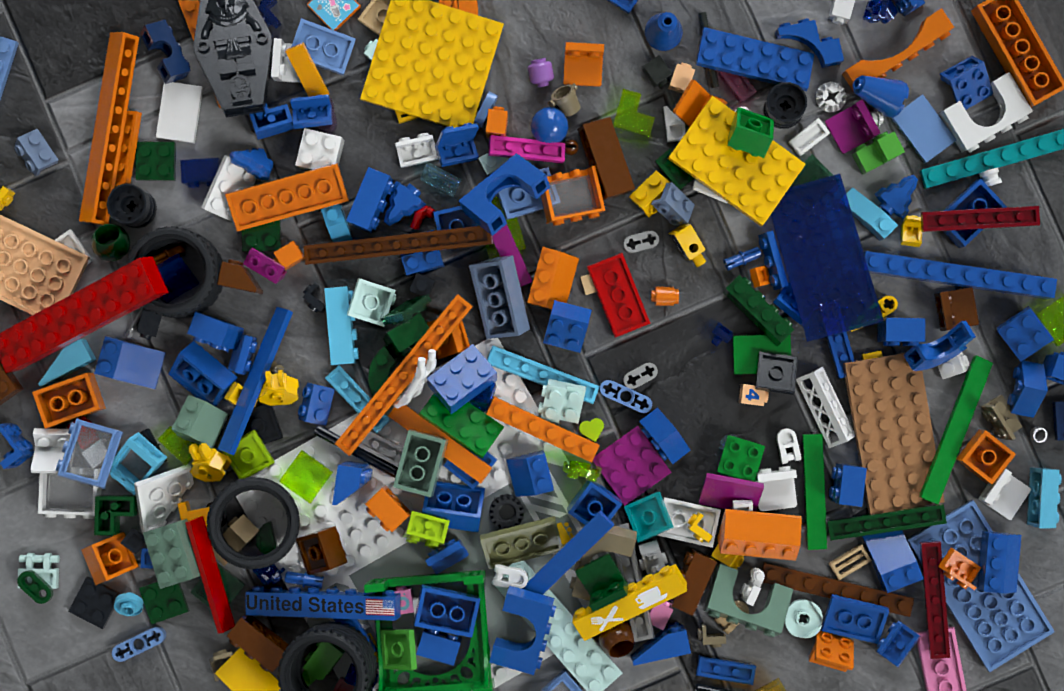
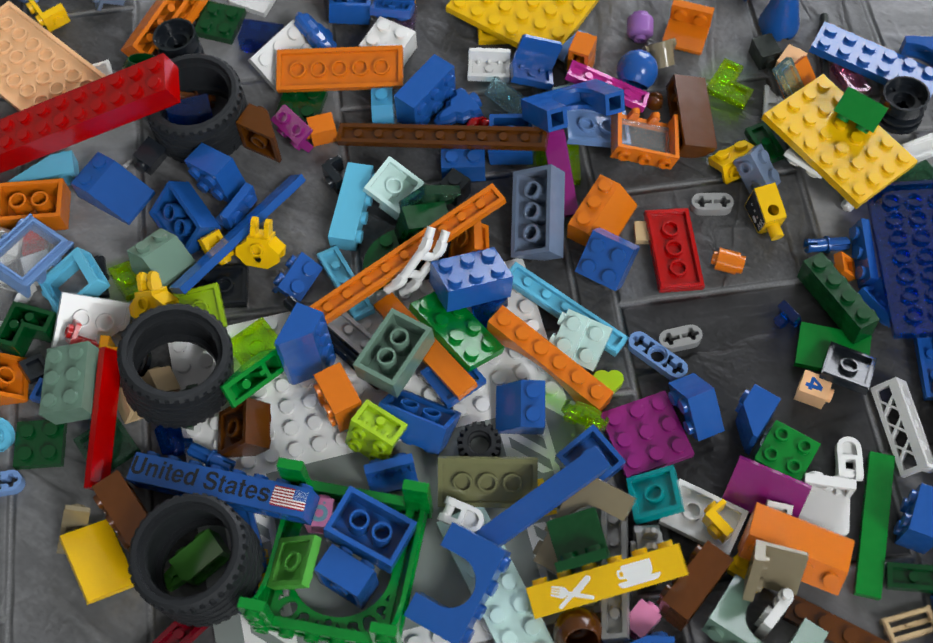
camera: 20 degrees right, 25 degrees down
(162, 514) = (72, 337): none -> red bracket
(315, 514) = (252, 376): none -> green slope
(684, 109) = (788, 77): none -> clear light blue tile
(711, 434) = (754, 414): none -> blue slope
(745, 559) = (774, 569): none -> dark tan bracket

